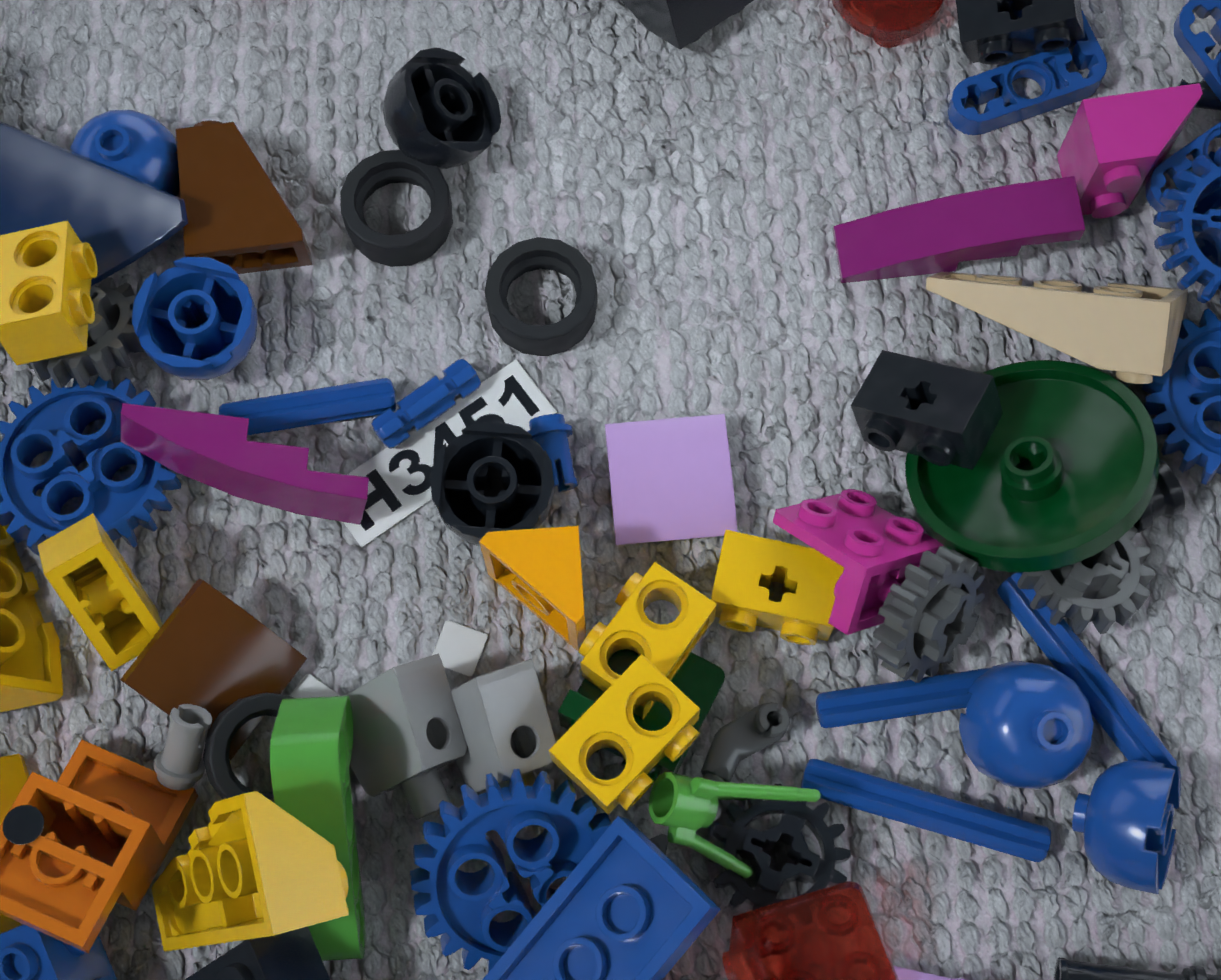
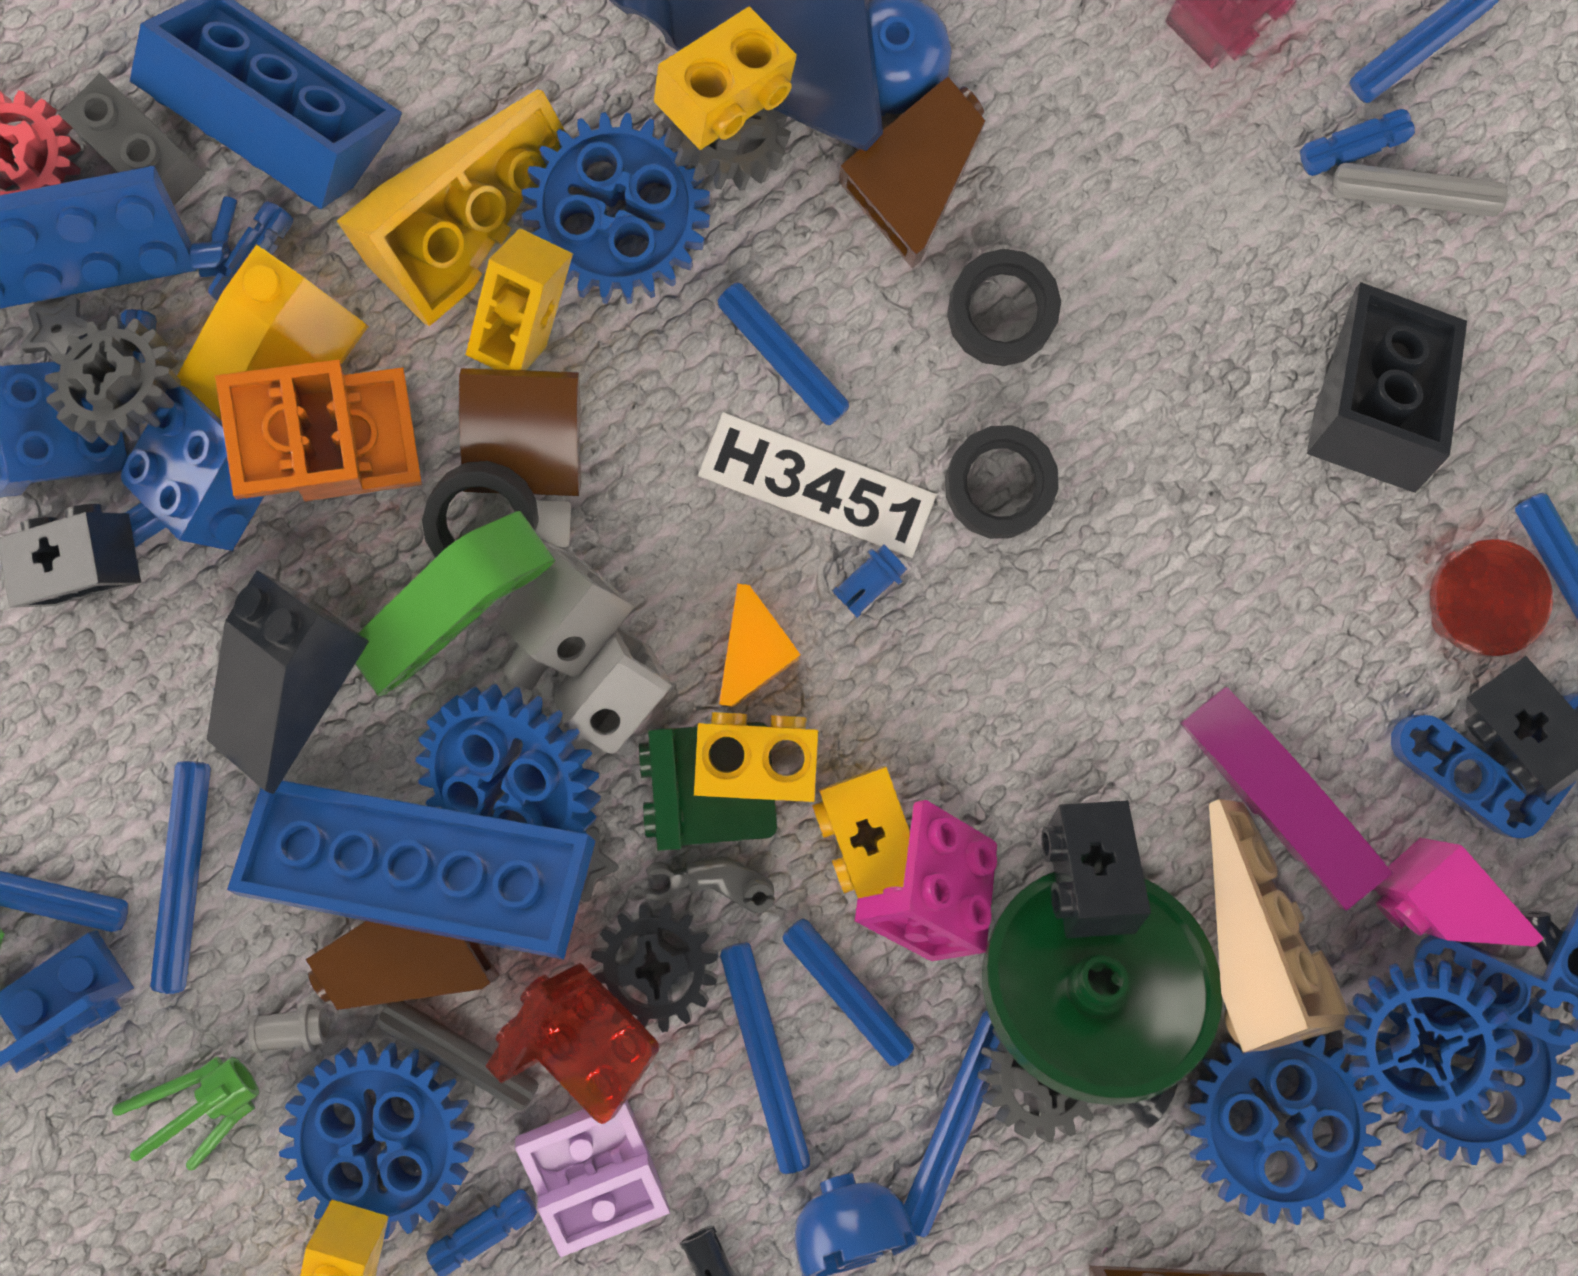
camera: 55 degrees right, 15 degrees up
(23, 824) = (294, 383): black sticker -> none
(180, 761) = (433, 457): light grey pin -> none
(195, 318) = (790, 214): blue cylinder -> none
(218, 455) = (688, 318): magenta slope -> none
(248, 878) = (358, 589): yellow wedge -> none
(426, 403) = (848, 448): blue axle -> none
(440, 110) = (1111, 289): black cylinder -> none
(460, 647) = (665, 608): white sticker -> none
(492, 481) = (803, 555): black cylinder -> none
(612, 725) = (657, 785): yellow brick -> none
(670, 479) = (909, 690): lavender slope -> none
(692, 804) = (638, 879): bright green plant -> none
(929, 614) = (918, 974): dark grey gear -> none
(1026, 725) = (880, 1101): blue cylinder -> none

